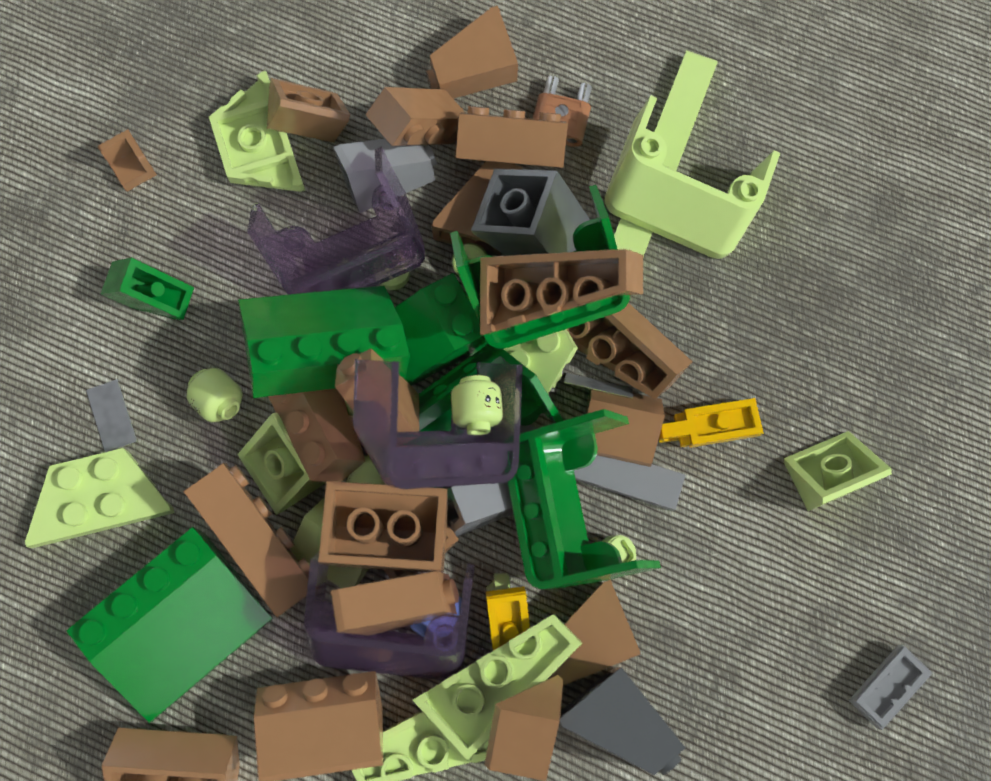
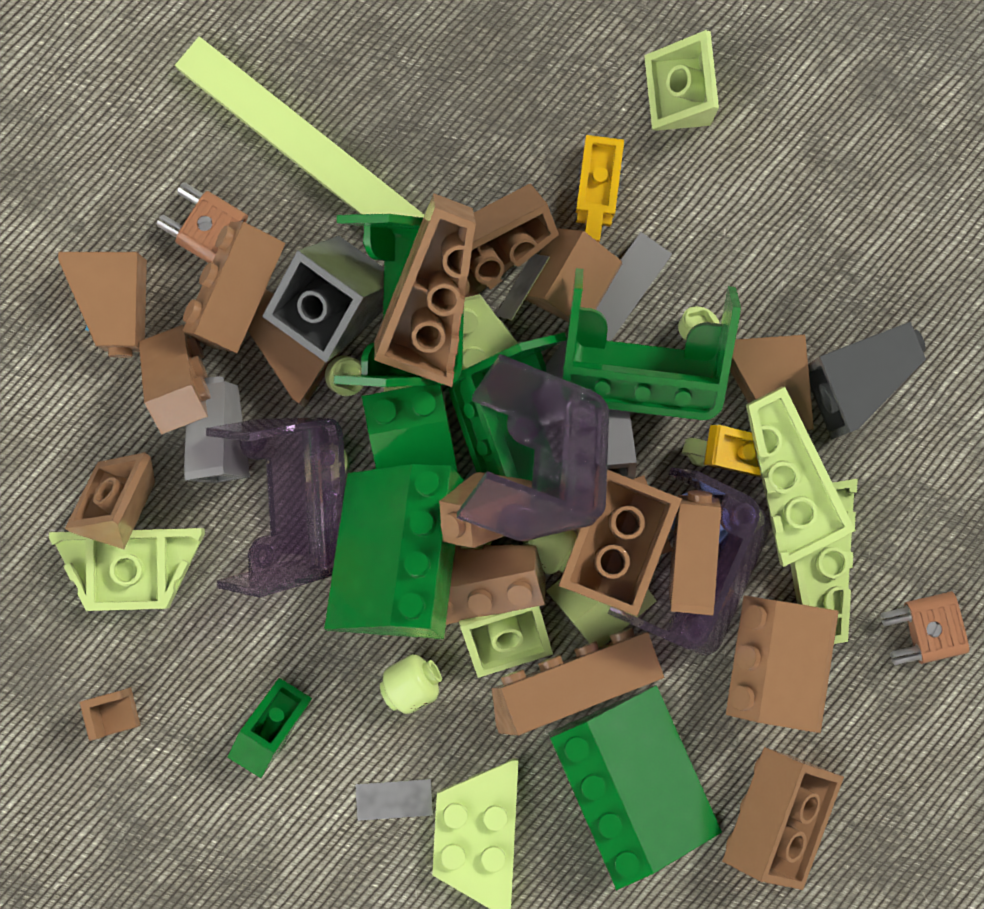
camera: 70 degrees left, 10 degrees up
(476, 404) = (522, 413): yellowish green head -> none
(525, 731) = (848, 463): medium nougat slope -> none
(677, 204) = (340, 163): yellowish green windscreen -> none
(890, 687) = (900, 111): light grey plate -> none

